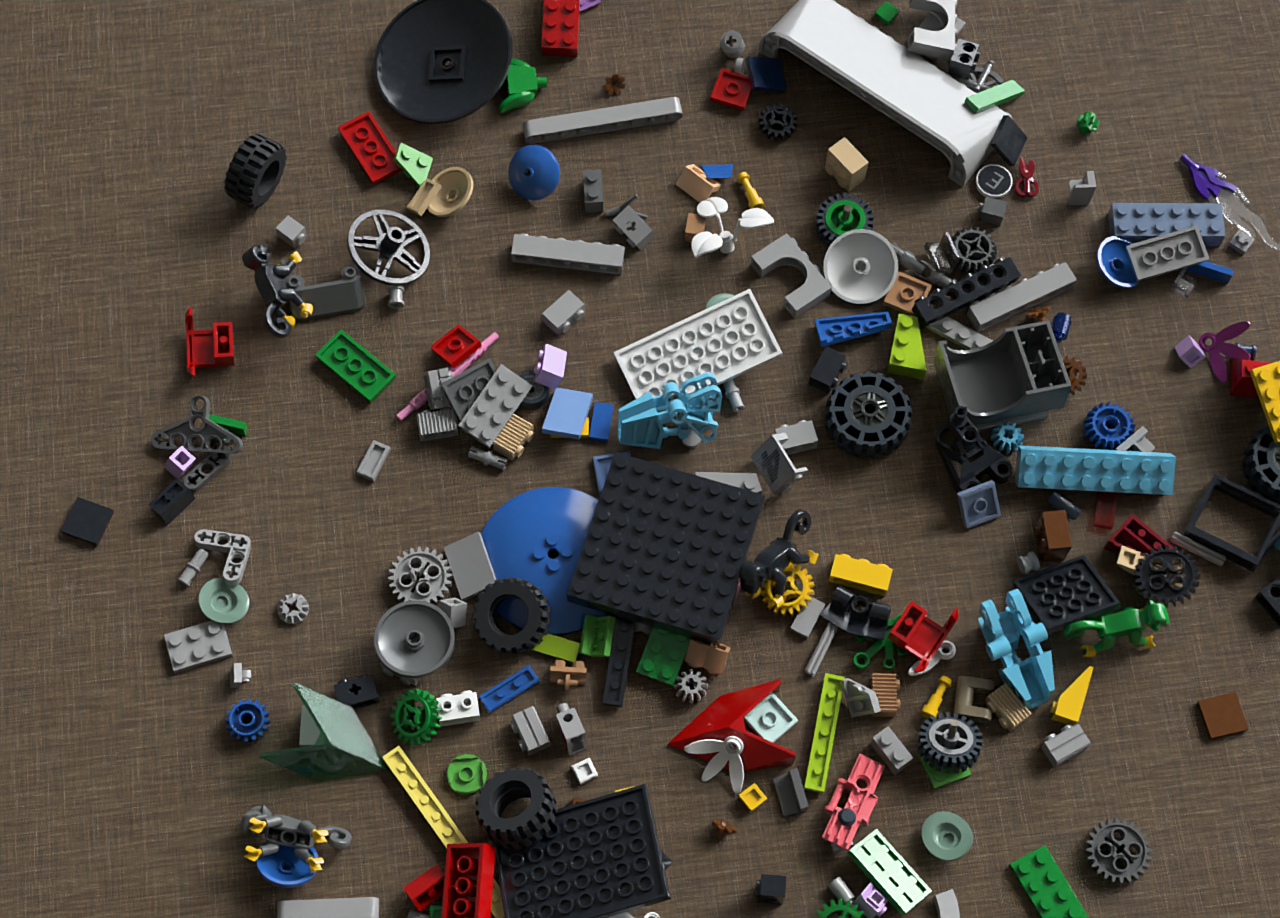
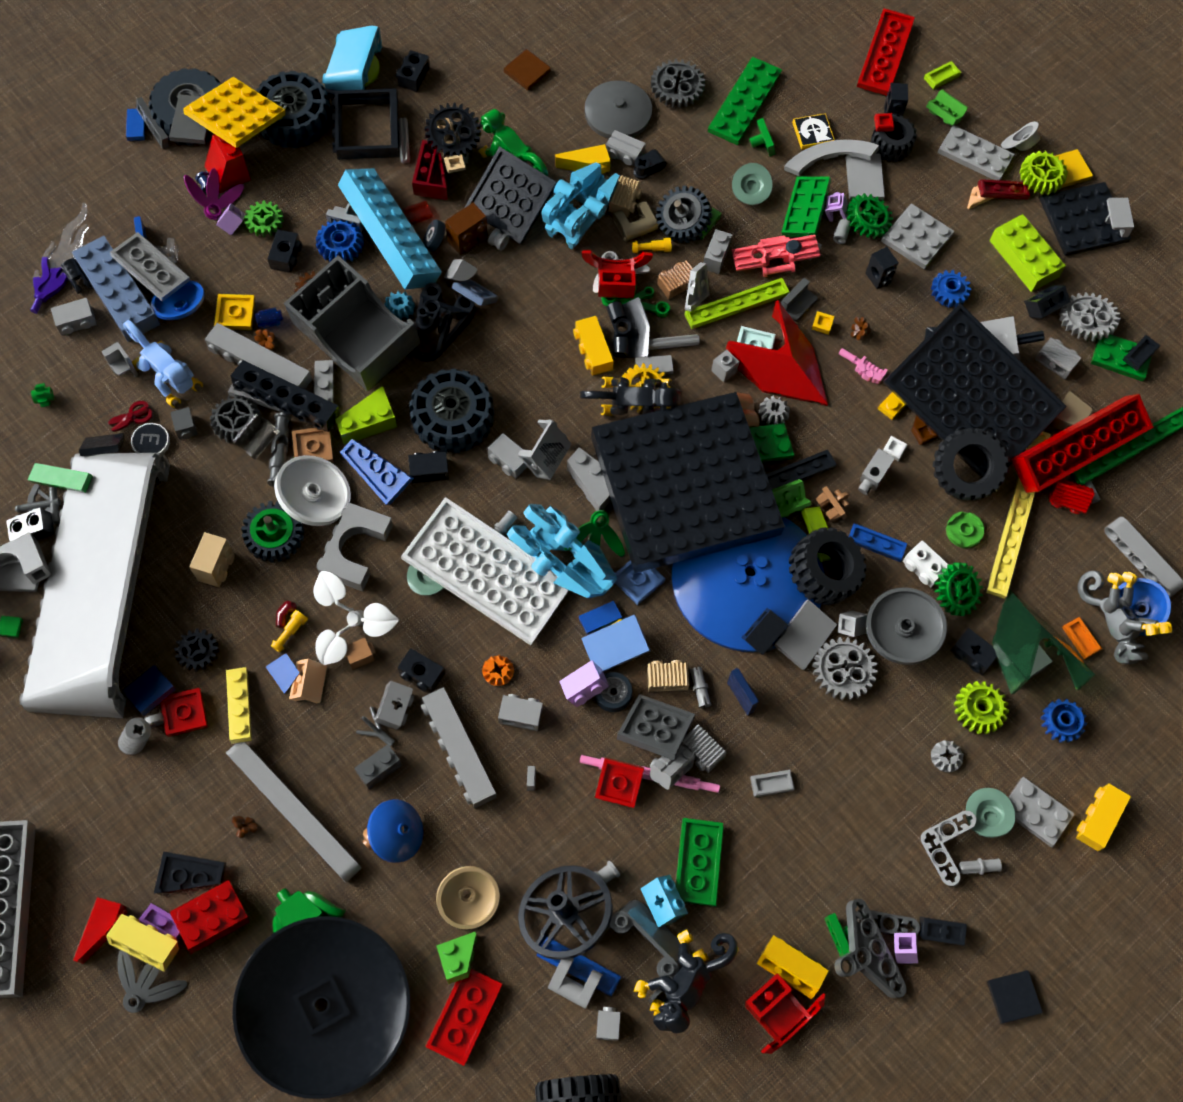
camera: 125 degrees left, 0 degrees up
(154, 689) = (1102, 816): none -> yellow brick
(231, 377) = (793, 967): none -> yellow brick
(238, 675) = (1035, 756): light grey tile -> none
(302, 798) = (1082, 638): none -> orange tile
(305, 650) = (994, 706): none -> lime gear
(334, 223) = (571, 989): none -> light grey connector
(338, 244) = (582, 968): none -> blue tile
(345, 319) = (664, 900): none -> medium azure brick
(424, 197) = (486, 921): tan tile -> none
(457, 479) = (742, 691): none -> dark blue tile
(493, 529) = (765, 631): none -> black brick
(495, 406) = (655, 704): light grey plate -> none
(506, 289) = (531, 778): none -> light grey tile
(530, 731) = (898, 502): light grey brick -> none
(607, 32) = (187, 872): none -> black wing
(617, 325) = (506, 673): none -> orange gear
(644, 271) = (415, 661): none -> black brick
(678, 458) = (596, 528): none -> green plant
(679, 805) = (867, 370): none -> bright pink piece
(711, 125) = (238, 705): none -> light yellow plate
(726, 753) = (805, 347): white plant -> none
(764, 672) = (725, 365): none -> light grey brick
(770, 197) = (283, 610): none -> dark red arm
(998, 891) = (763, 138): none -> green tile
(1007, 502) = (460, 270): none -> light grey brick
(1033, 759) = (649, 164): none -> black piece
(1058, 212) = (166, 368): none -> light blue animal
(1084, 304) = (235, 311): none -> yellow plate
(1120, 773) = (619, 108): none -> dark grey dish
(1124, 366) = (282, 260): none -> black brick
(1155, 181) = (73, 316): none -> light grey brick
(1181, 384) = (263, 218): none -> bright green gear
(1207, 197) = (73, 273): none -> black hinge
(1241, 242) = (96, 230): light grey tile -> none

